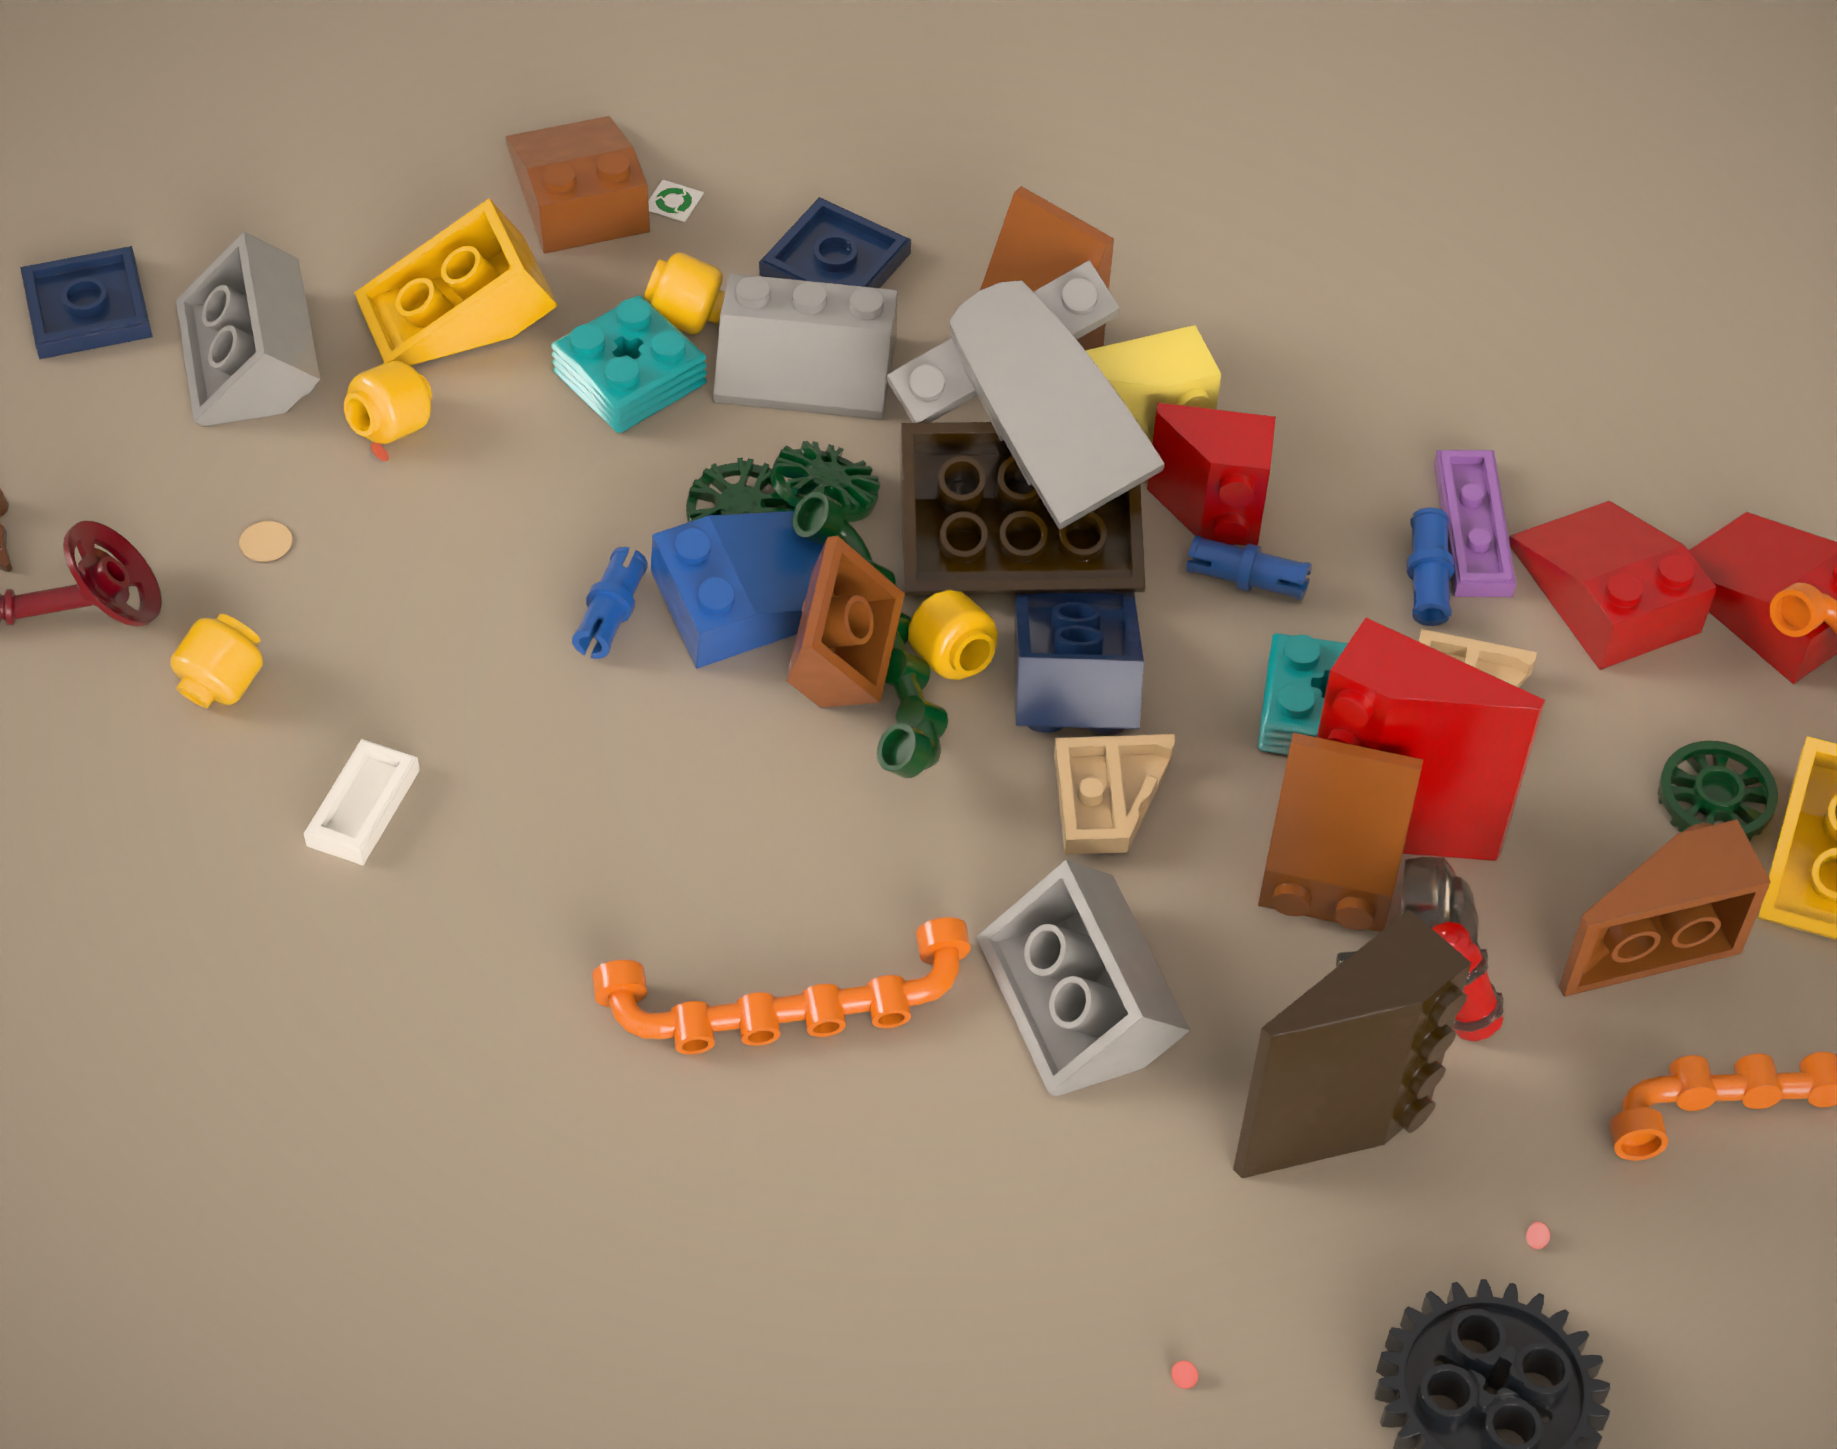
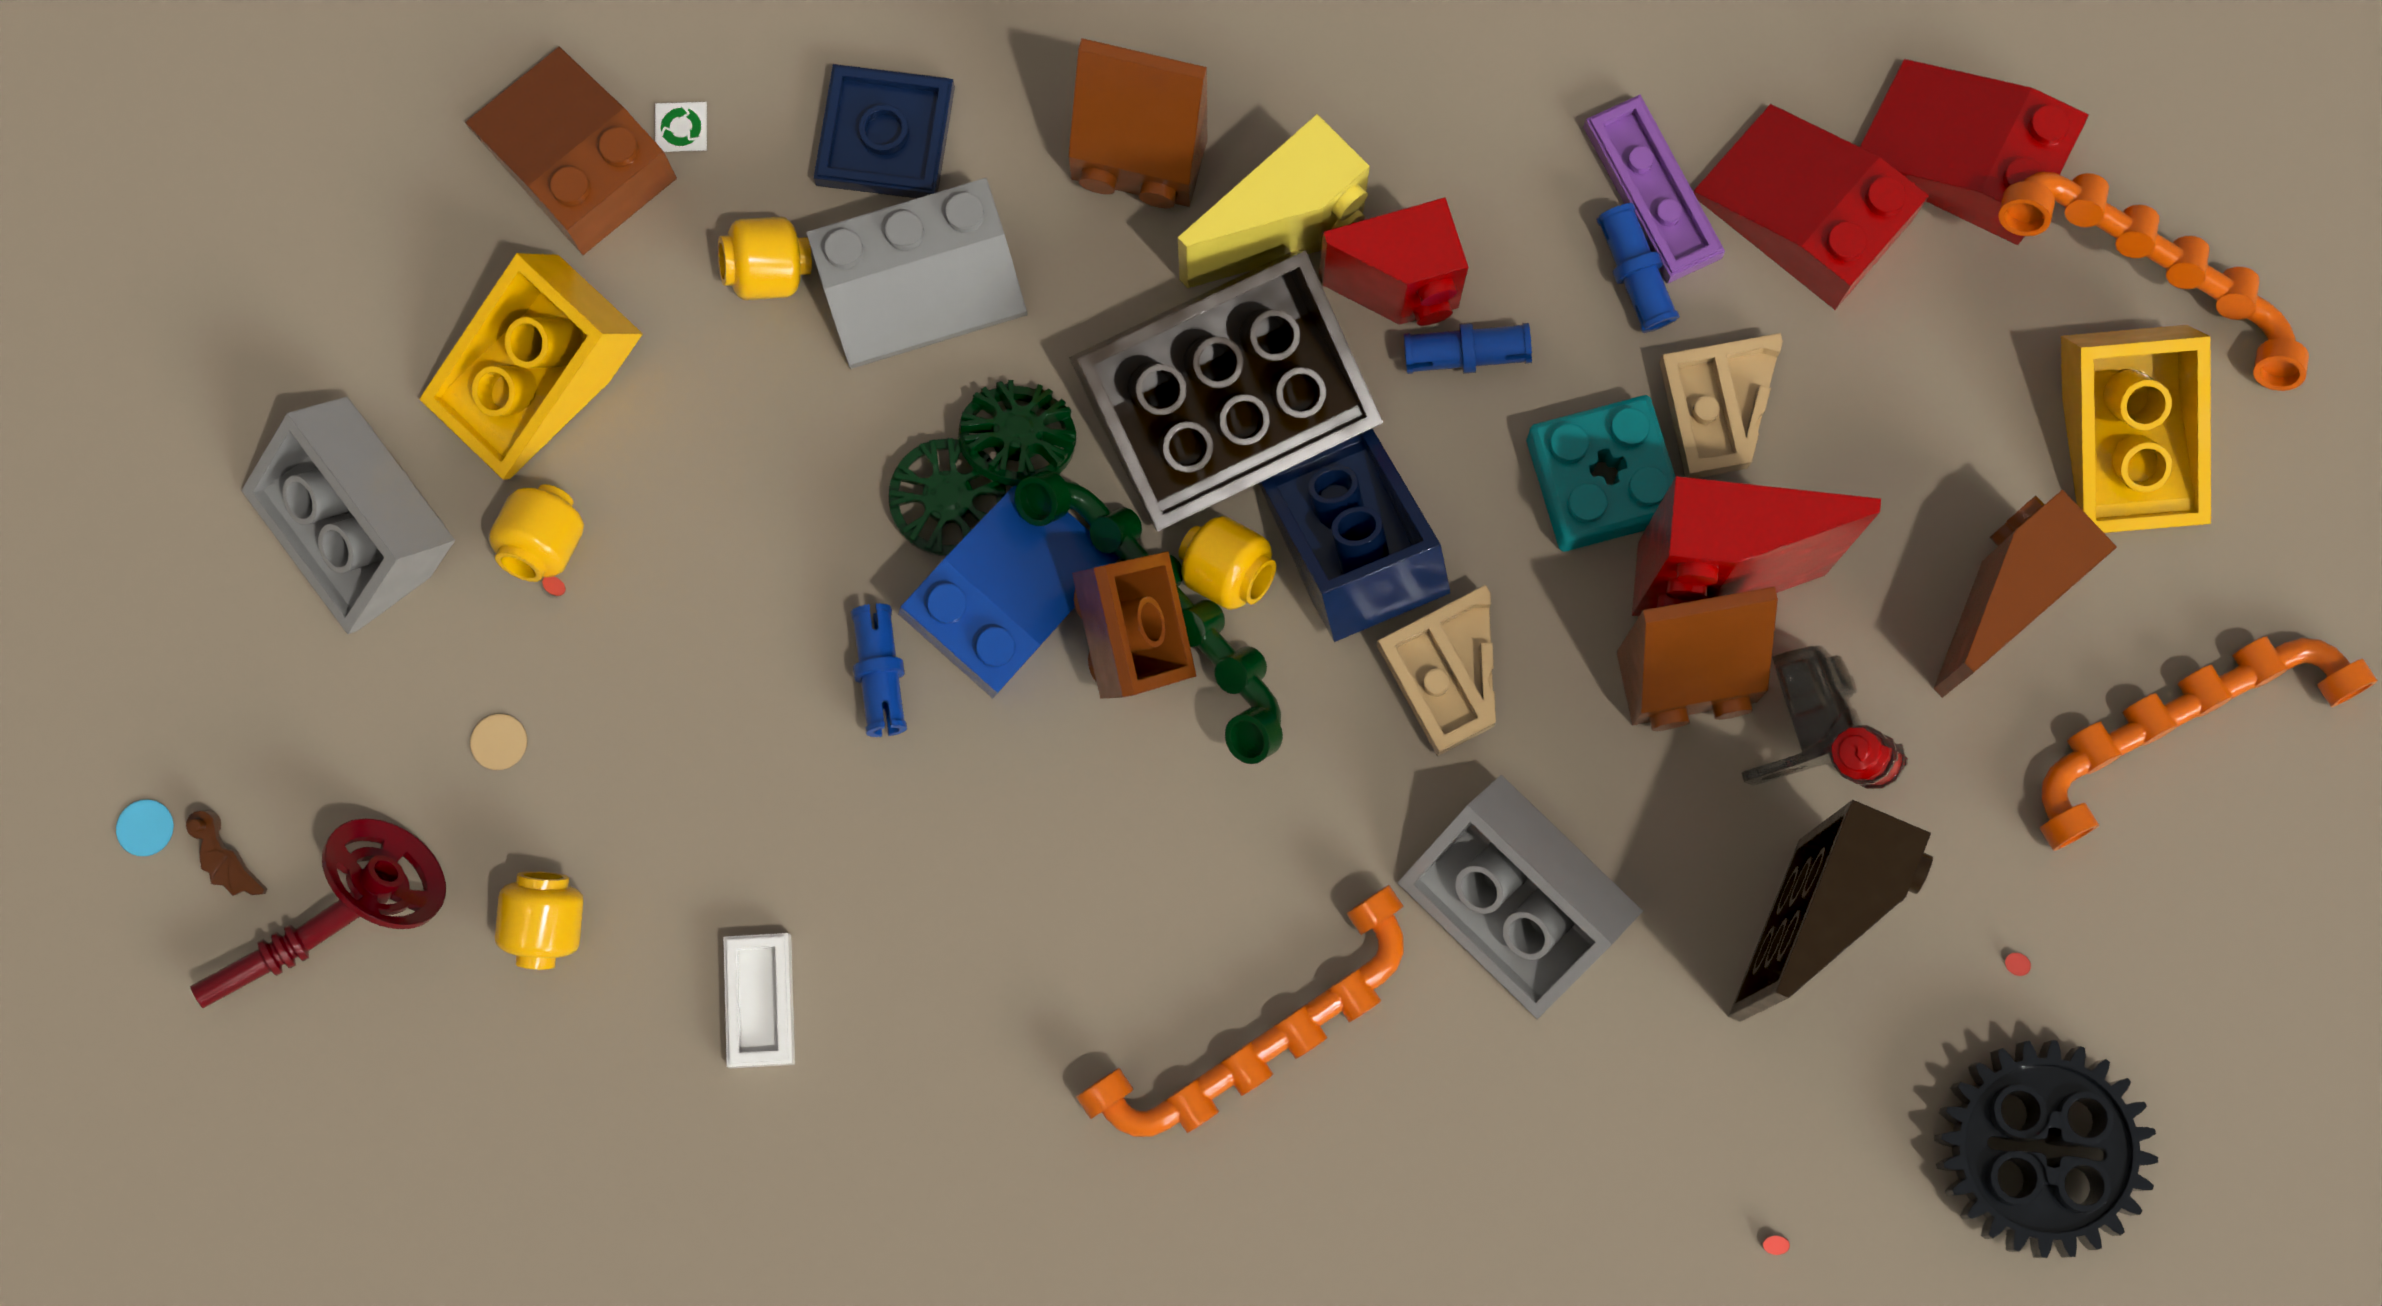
camera: 20 degrees left, 25 degrees up
(85, 302) = (150, 535): dark blue tile -> none
(629, 363) = (760, 405): teal brick -> none
(1038, 389) = (1204, 274): light grey slope -> none
(1717, 789) = (1998, 410): dark green wheel -> none

